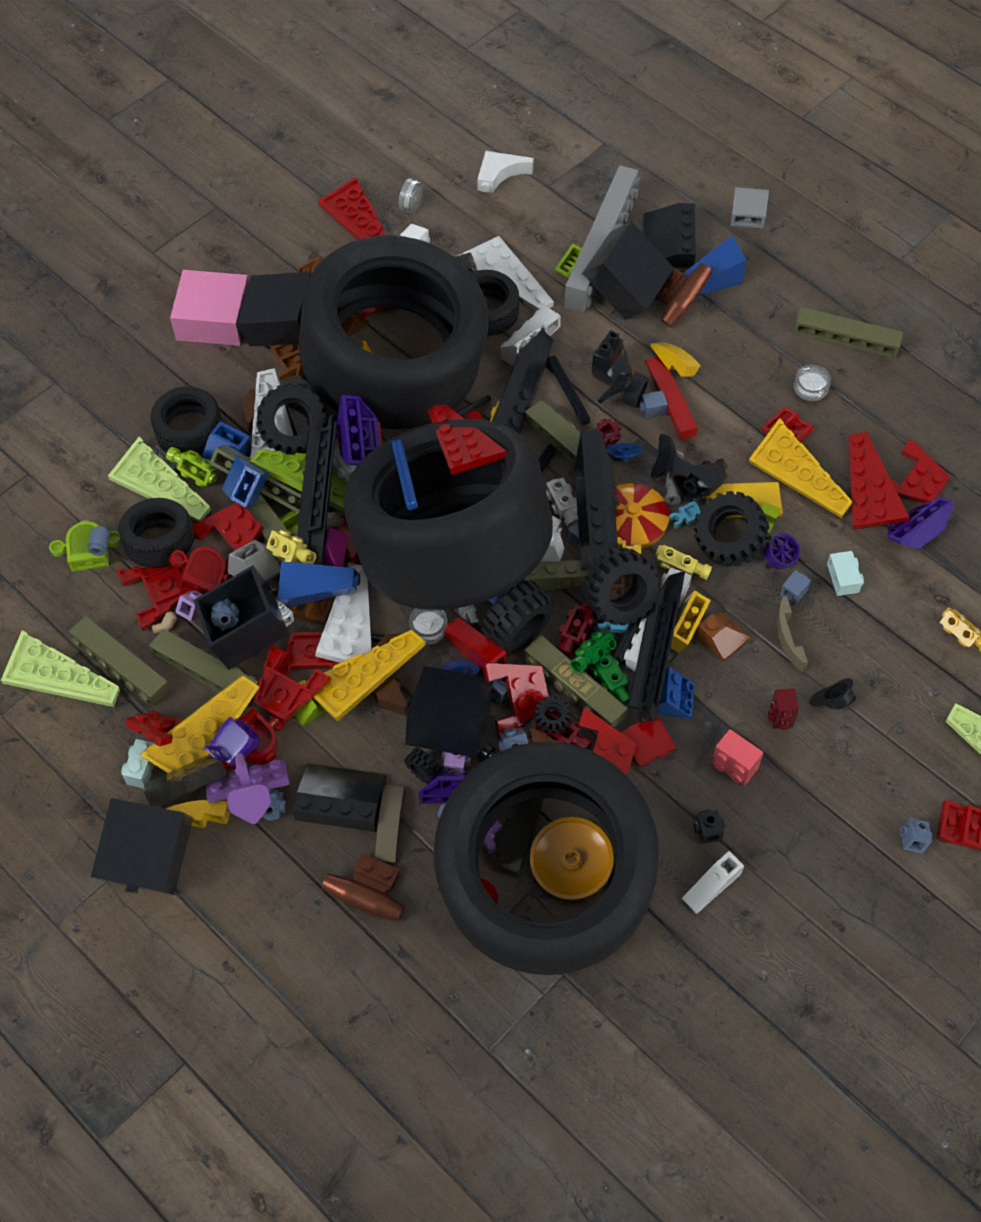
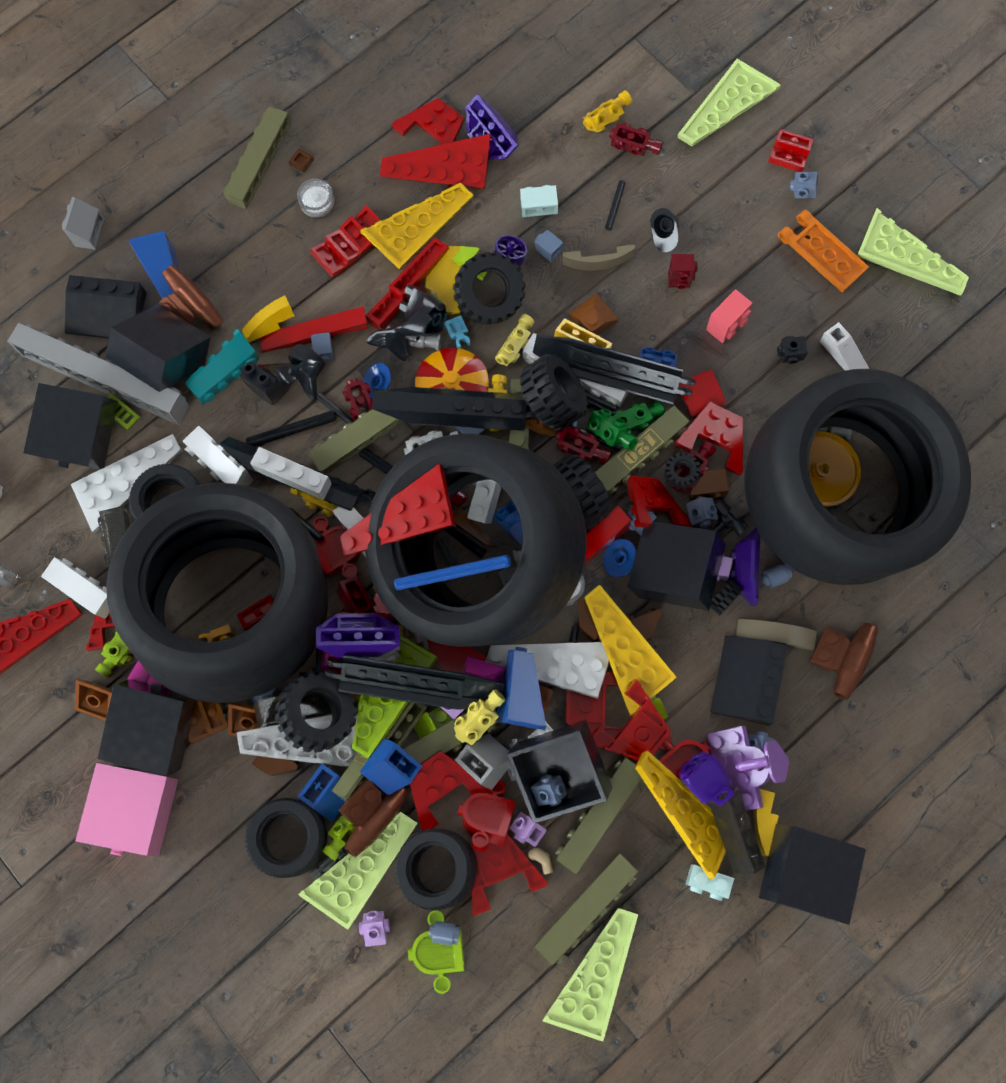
camera: 80 degrees left, 15 degrees up
(107, 494) = (374, 928): none -> lavender brick
(154, 726) = (671, 864): red wing -> none
(205, 476) = (370, 814): none -> copper plate
(514, 381) = (291, 473): none -> white brick
(547, 223) = (70, 426): none -> black container
(597, 417) = (330, 405): none -> black bar
(635, 335) = (222, 368): none -> teal wedge
(737, 467) = (413, 274): none -> red slope
(757, 407) = (336, 253): none -> red slope
(835, 862) = (824, 252): none -> orange hinge
(852, 945) = (906, 254): none -> yellowish green wing
(853, 370) = (301, 160): none -> reddish brown tile
(857, 649) = (615, 204): none -> black bar
(937, 662) = (634, 140): none -> dark red brick

